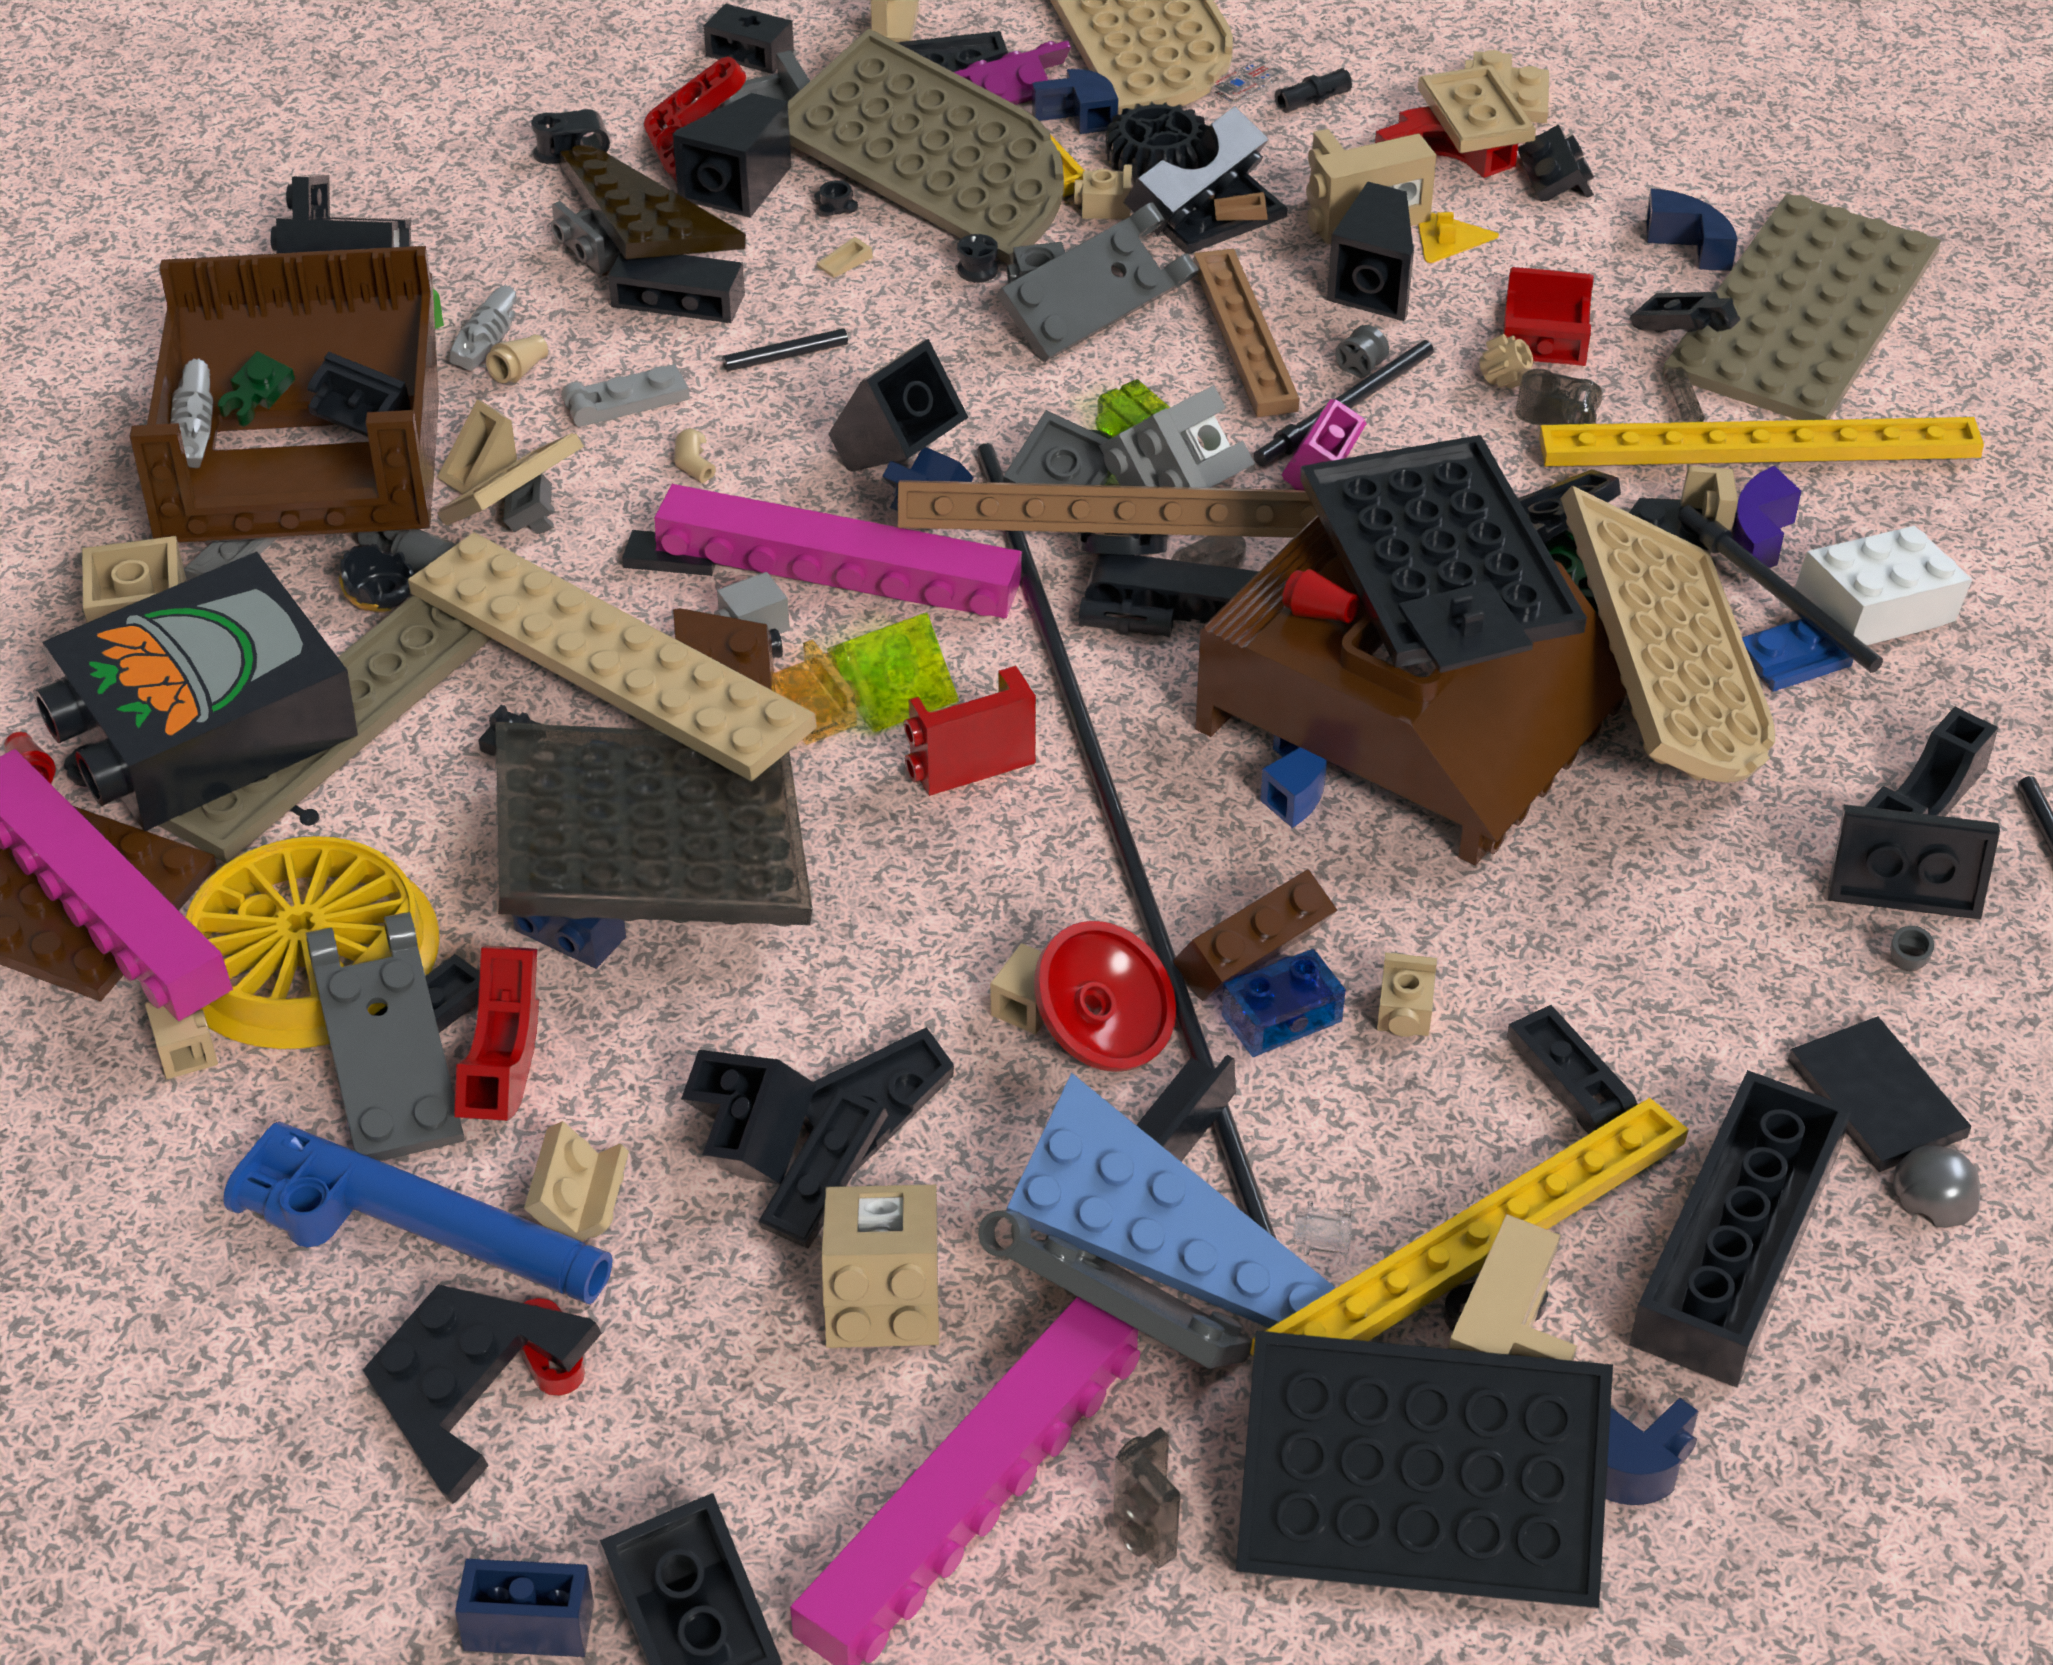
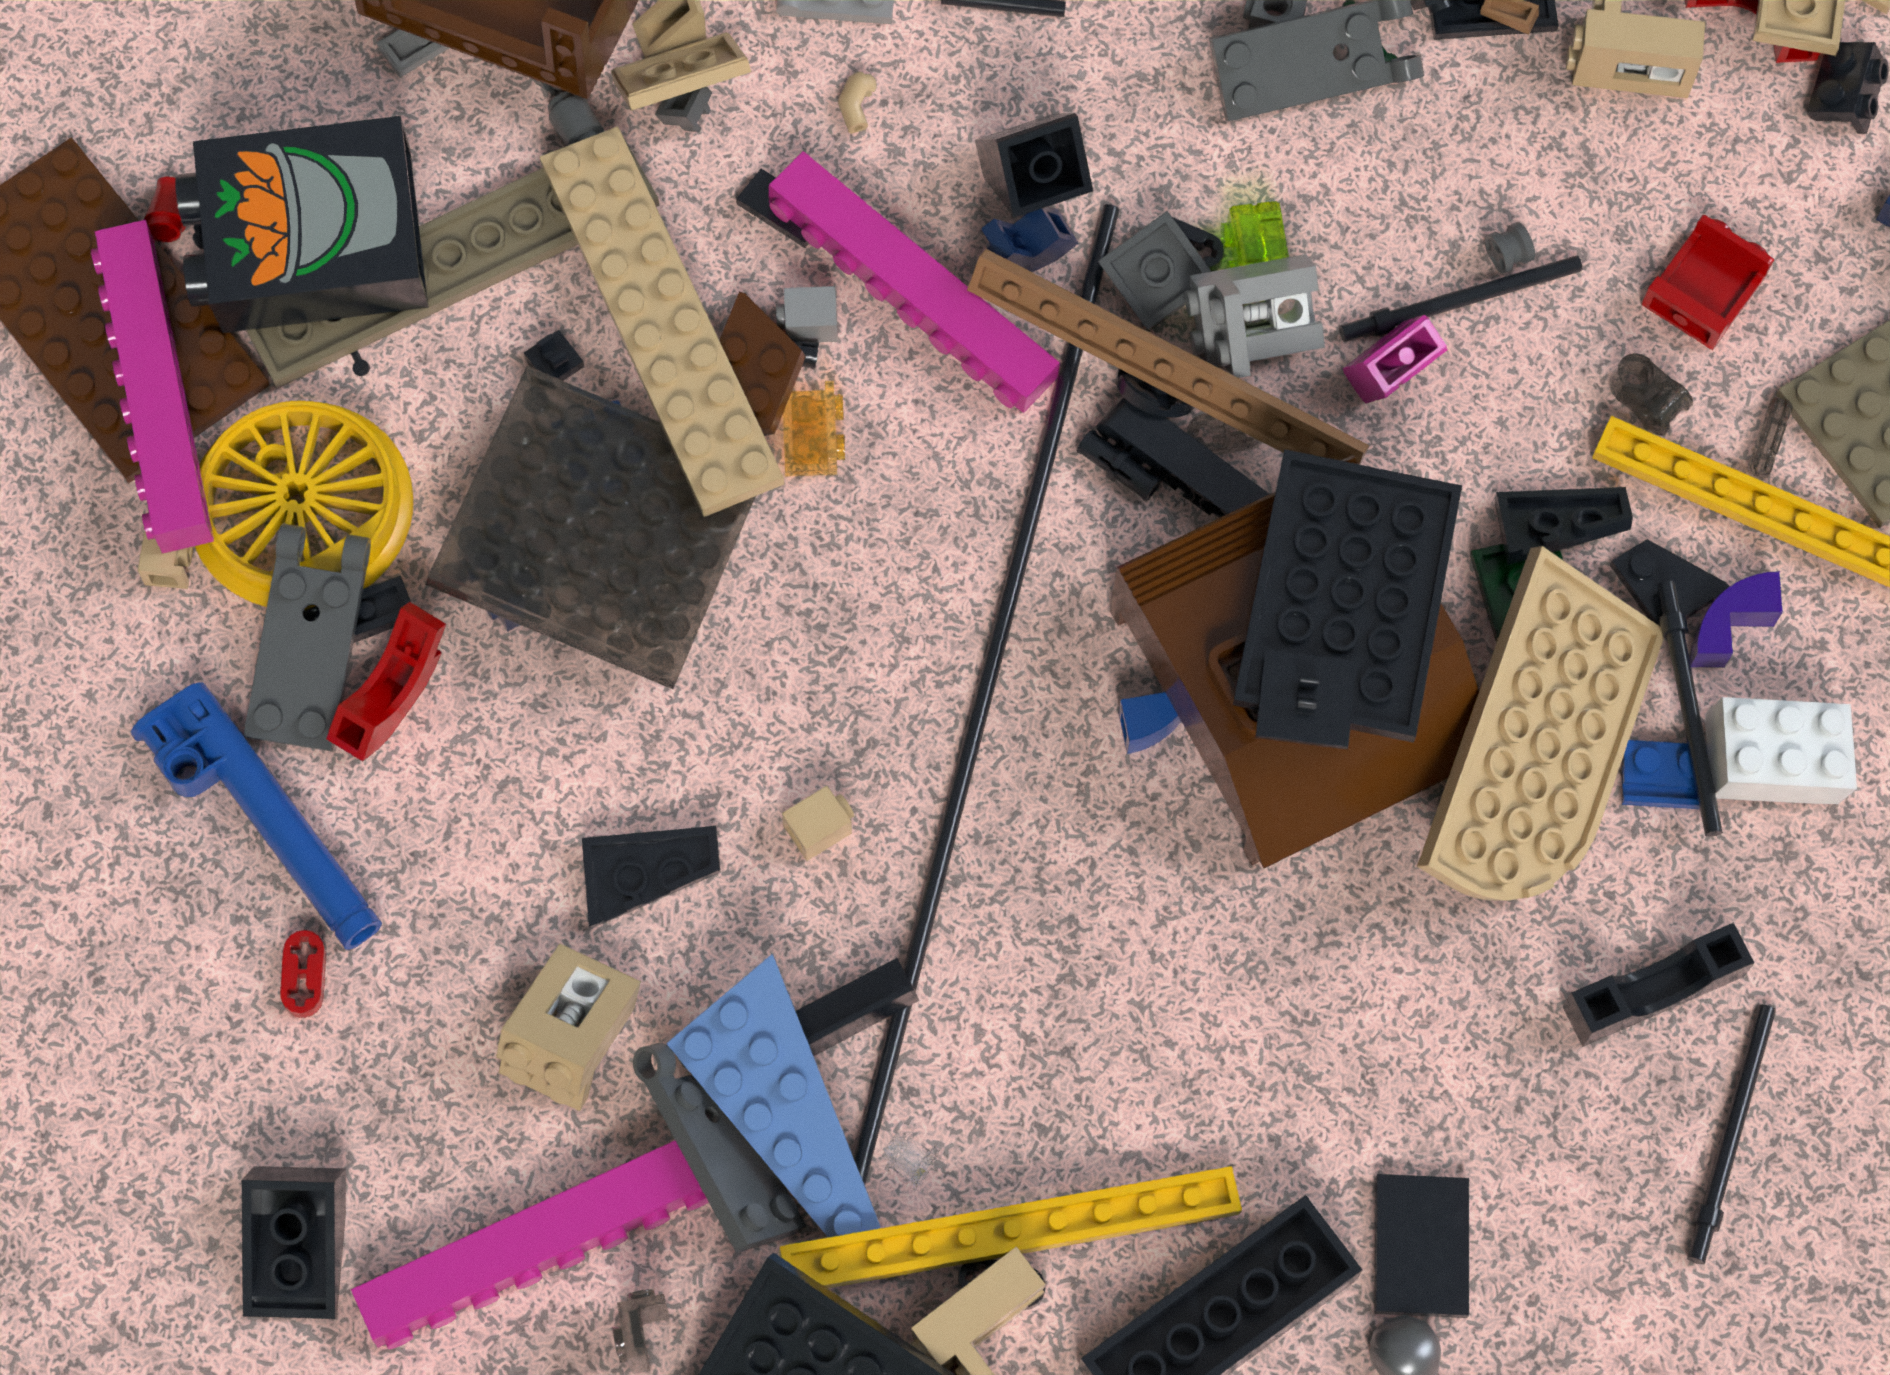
camera: 25 degrees right, 25 degrees up
(128, 573) = (319, 64): tan brick -> none
(374, 578) = (521, 133): black hair -> none
(450, 1357) = (222, 955): black wing -> none
(524, 1607) = (179, 1194): dark blue brick -> none
(574, 1184) = (384, 845): tan bracket -> none
(755, 1111) = (543, 850): black brick -> none
(824, 1161) = (573, 916): black tile -> none
(895, 667) = (889, 439): clear neon green slope -> none
(973, 737) = (906, 556): red panel -> none
(1119, 982) = (885, 882): red dish -> none
(1246, 333) = (1421, 171): medium nougat plate -> none
(1254, 934) = (1018, 862): reddish brown brick -> none
(1283, 1002) = (1005, 932): clear blue brick -> none
(1317, 597) = (1220, 592): red cone -> none
(1373, 254) = (1584, 137): black slope -> none
(1407, 994) = (1105, 994): tan brick -> none
(1447, 236) = (1693, 127): yellow piece -> none
(1505, 361) = (1630, 323): tan gear -> none
(1570, 1067) = (1192, 1104): black plate -> none
(1686, 311) = (1830, 342): black hinge -> none
(1712, 492) = (1704, 575): tan bracket -> none
(1911, 941) = (1549, 1120): dark grey hinge -> none
(1913, 861) = (1590, 1055): black tile -> none

